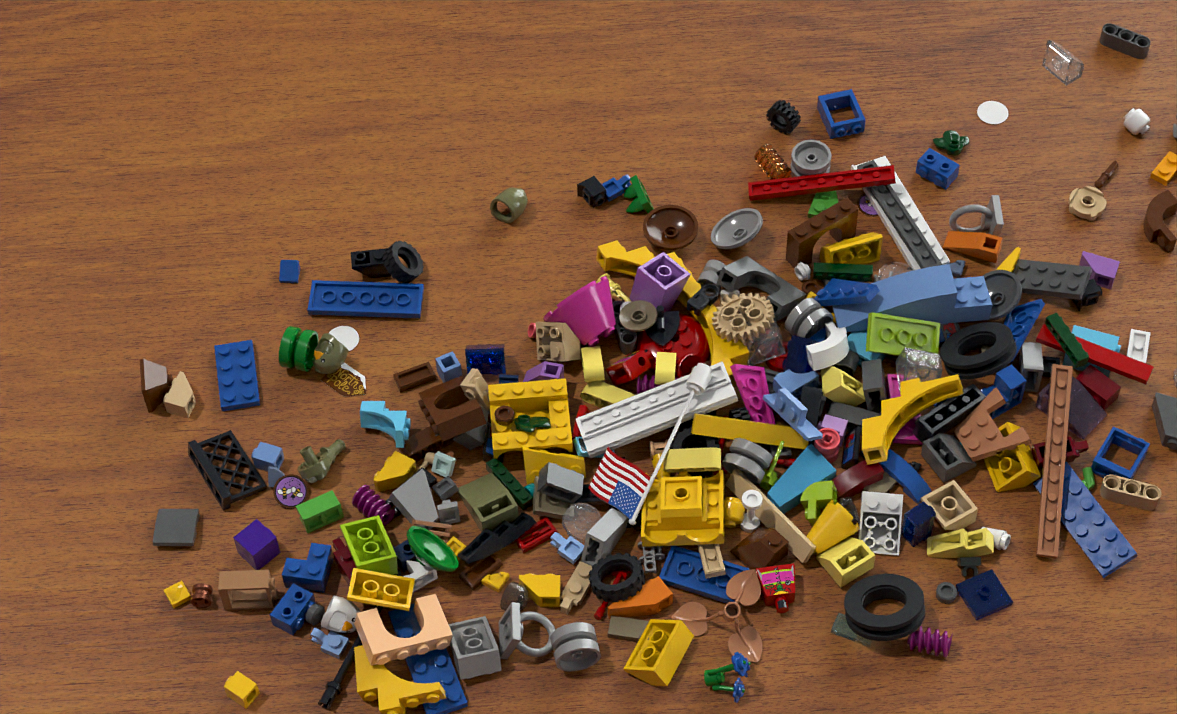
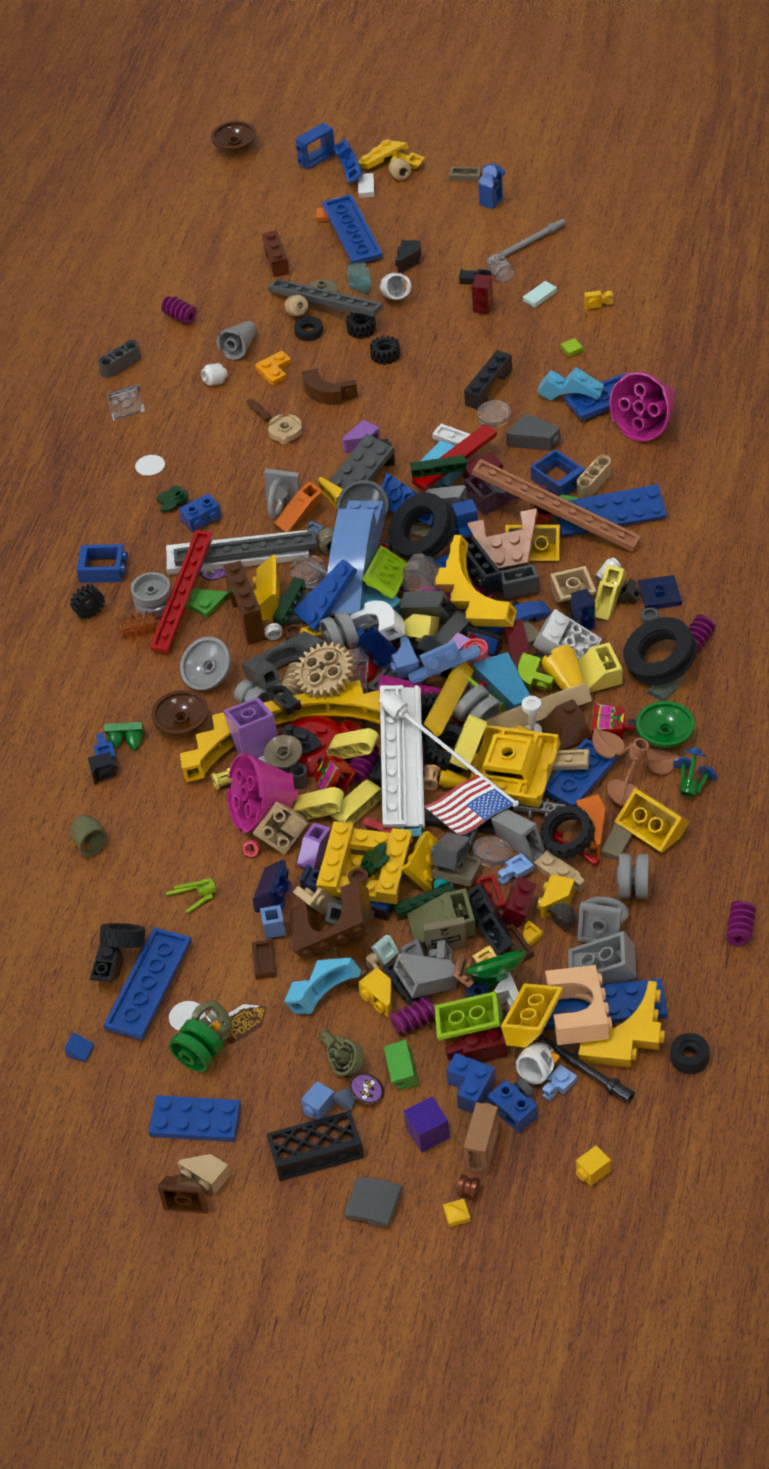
camera: 70 degrees left, 5 degrees down
(465, 505) = (450, 930): none -> dark tan tile
(478, 307) = (205, 887): none -> lime plant
(522, 557) = (518, 901): none -> dark red brick
(786, 624) = (665, 724): none -> green dish

